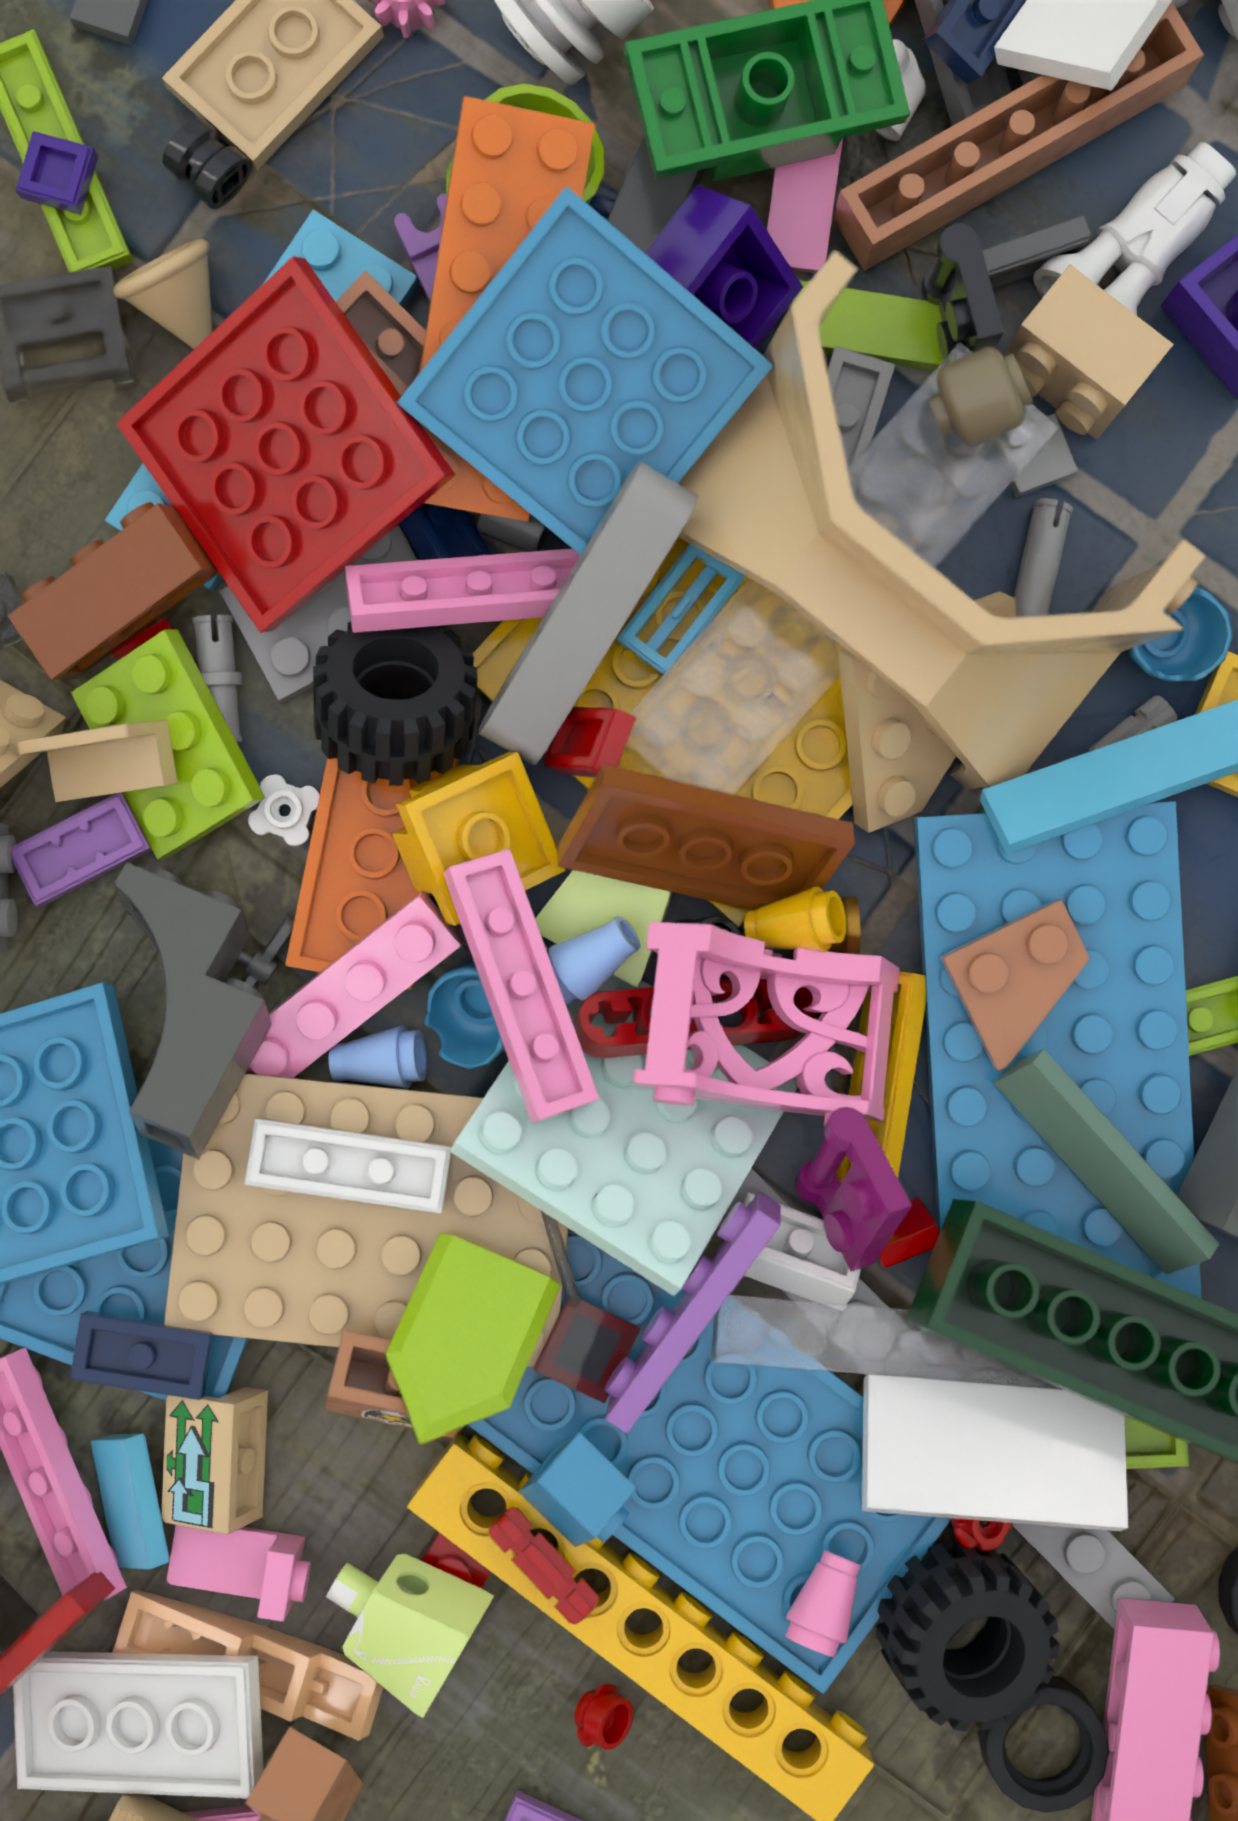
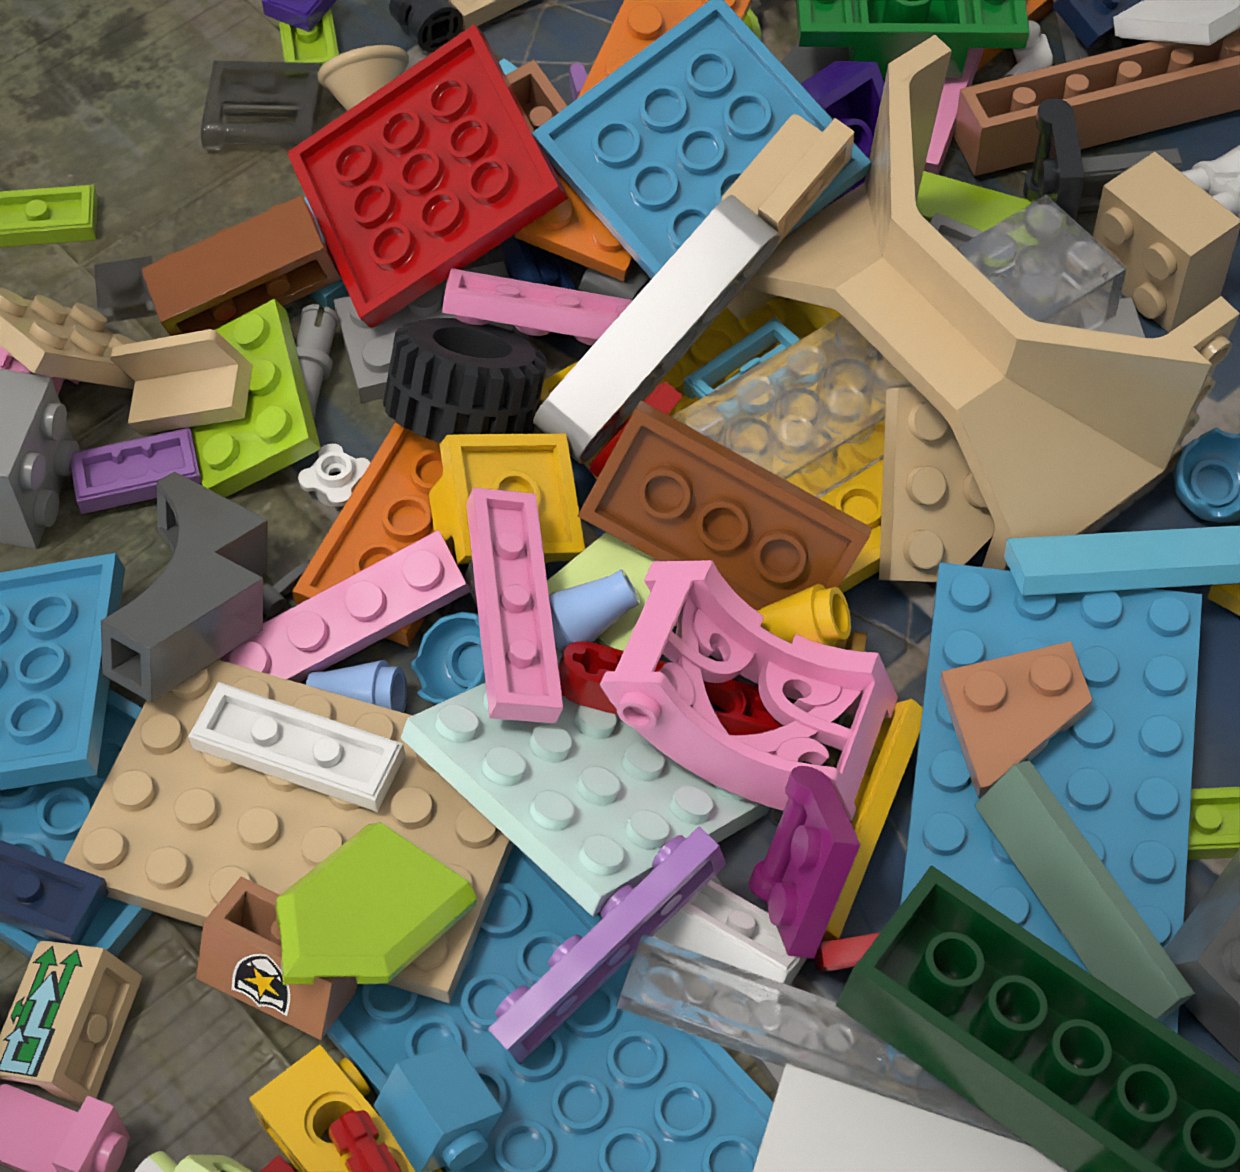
camera: 15 degrees right, 30 degrees down
(585, 1338) = (487, 963): clear smoke piece -> none
(688, 408) = (793, 171): none -> tan panel
(980, 396) = (1055, 213): dark tan head -> none

